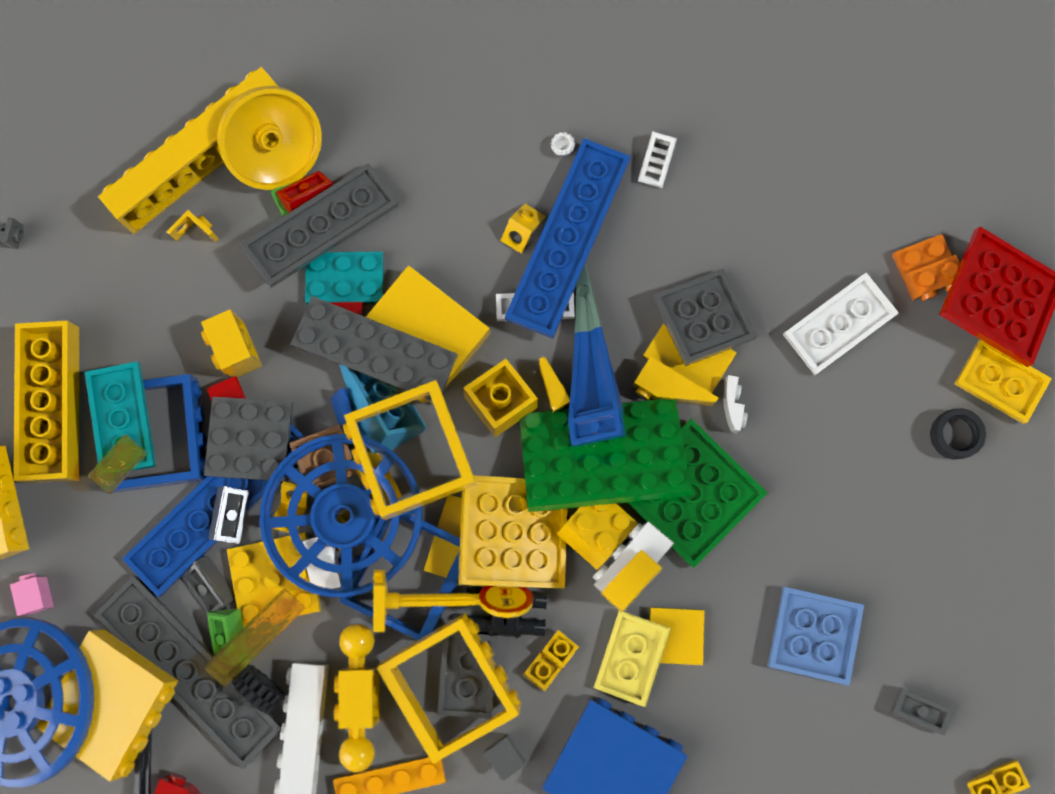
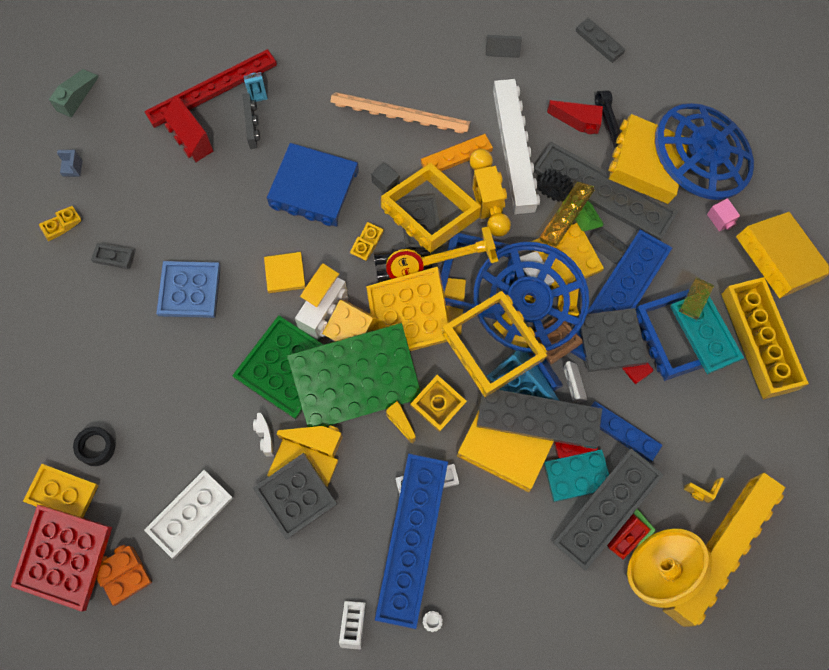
camera: 165 degrees right, 10 degrees down
(228, 515) = (609, 287): slope -> none
(231, 344) = (646, 402): yellow brick -> none
(268, 319) = (628, 434): none -> blue plate
(314, 396) = (574, 382): none -> white slope
(524, 222) = (449, 545): yellow bracket -> none
(594, 396) = (368, 412): blue plate -> none
(632, 658) = (311, 249): light yellow tile -> none

